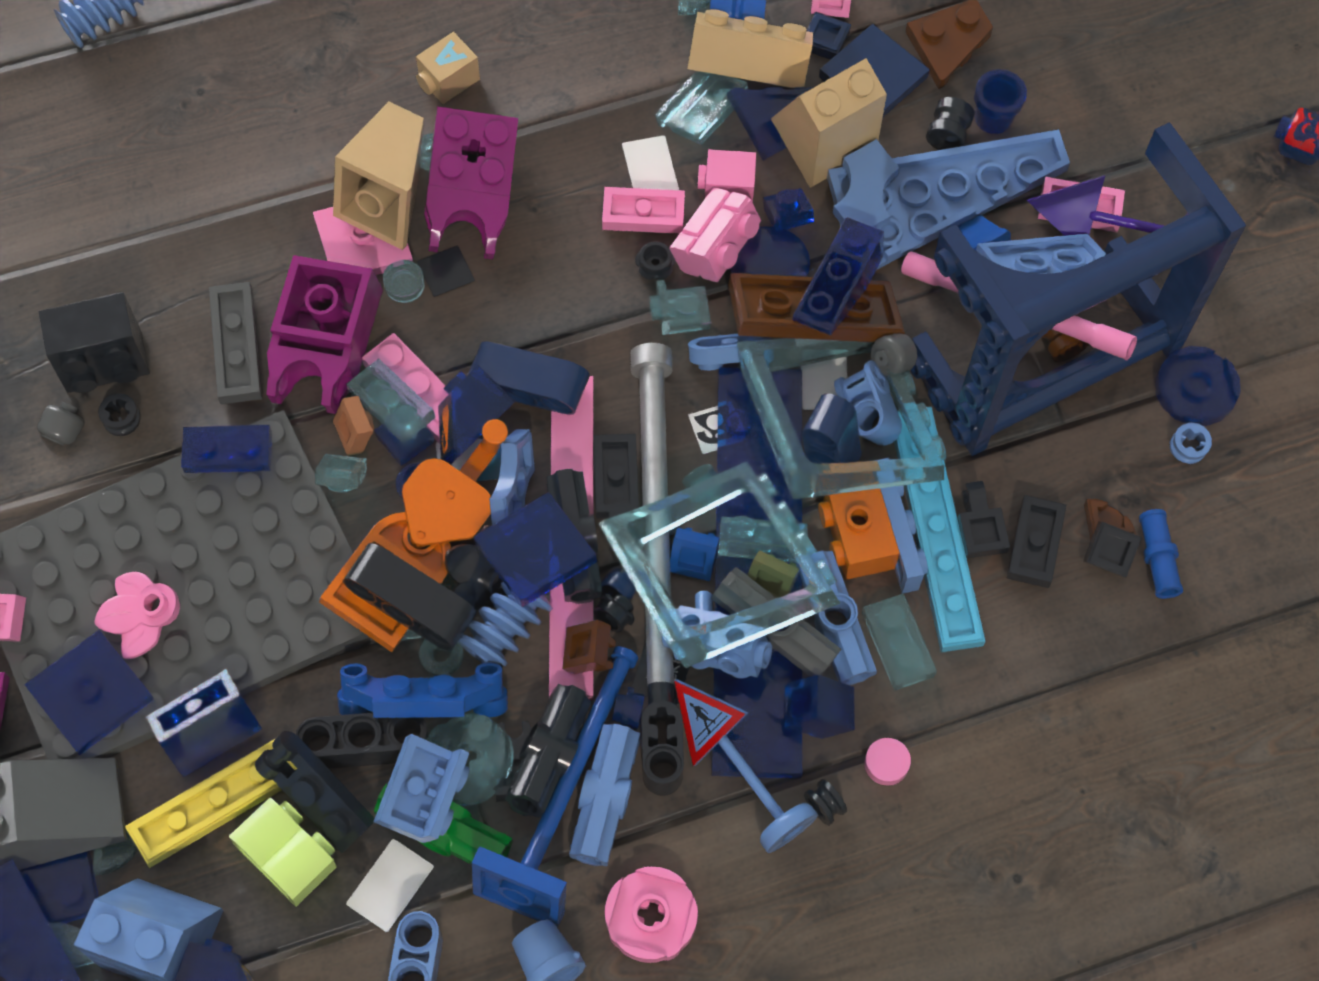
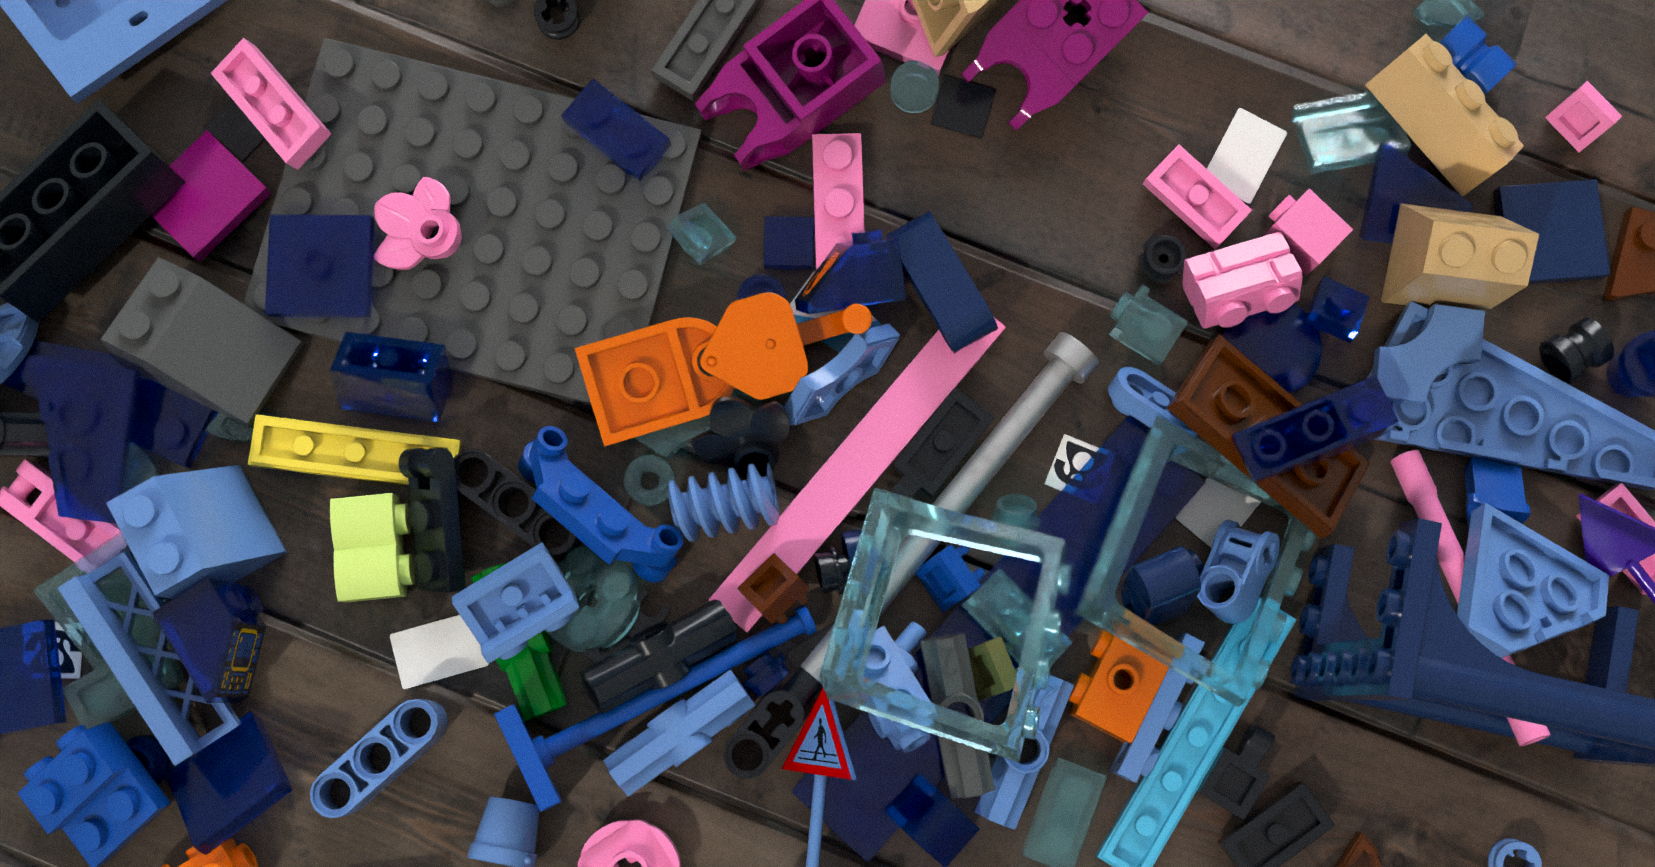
camera: 40 degrees right, 15 degrees up
(353, 425) = (749, 197): nougat plate -> none
(391, 401) = (798, 202): clear light blue plate -> none
(409, 596) = (651, 414): black beam -> none
(535, 549) = (797, 464): clear blue tile -> none
(570, 493) = (851, 472): black piece -> none
(828, 35) = (1541, 155): dark blue tile -> none
(894, 353) = (1304, 544): dark grey piece -> none
(1197, 386) = (1575, 813): clear blue tile -> none

